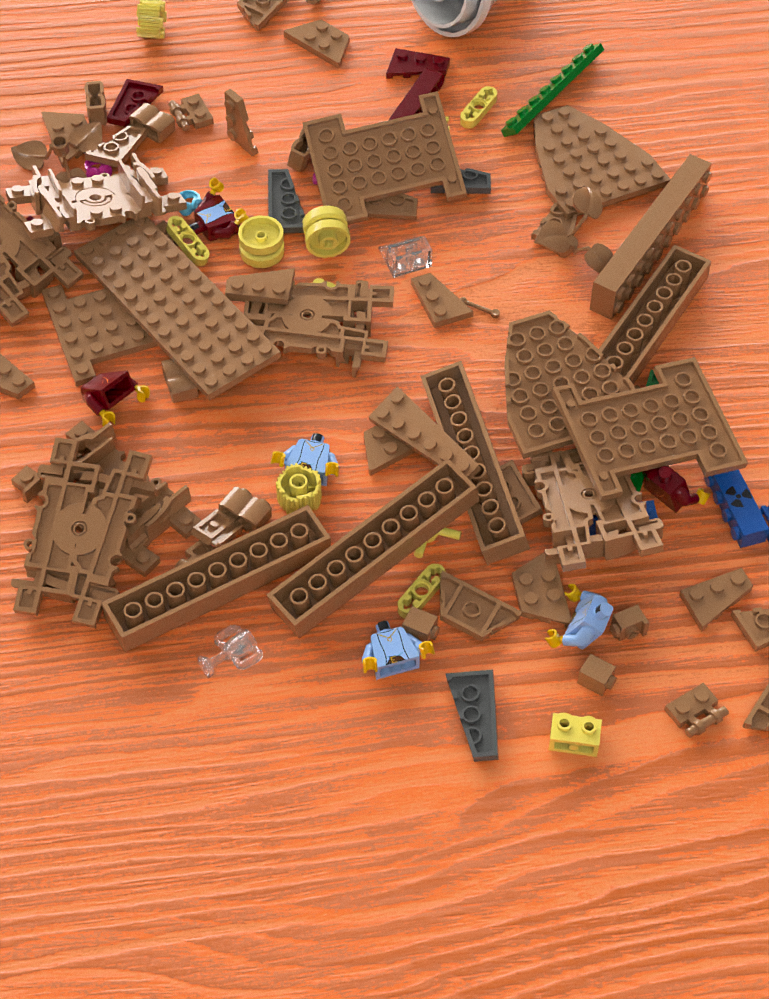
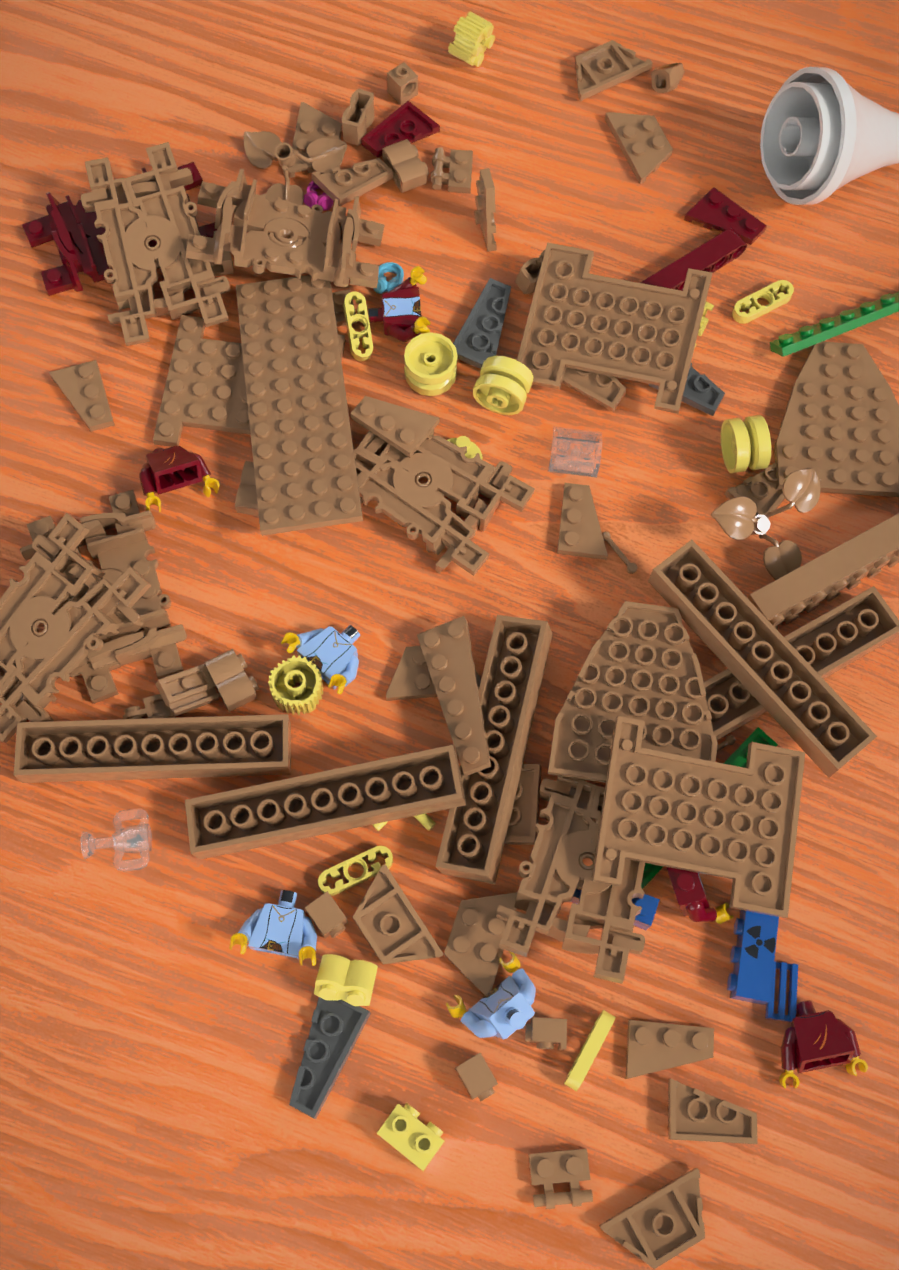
camera: 25 degrees right, 15 degrees up
(114, 69) = (402, 83): none -> medium nougat brick
(466, 656) = (345, 980): none -> light yellow brick
(527, 196) = (745, 444): none -> light yellow wheel
(626, 315) = (761, 658): none -> medium nougat brick
(665, 621) = (589, 1050): none -> light yellow beam

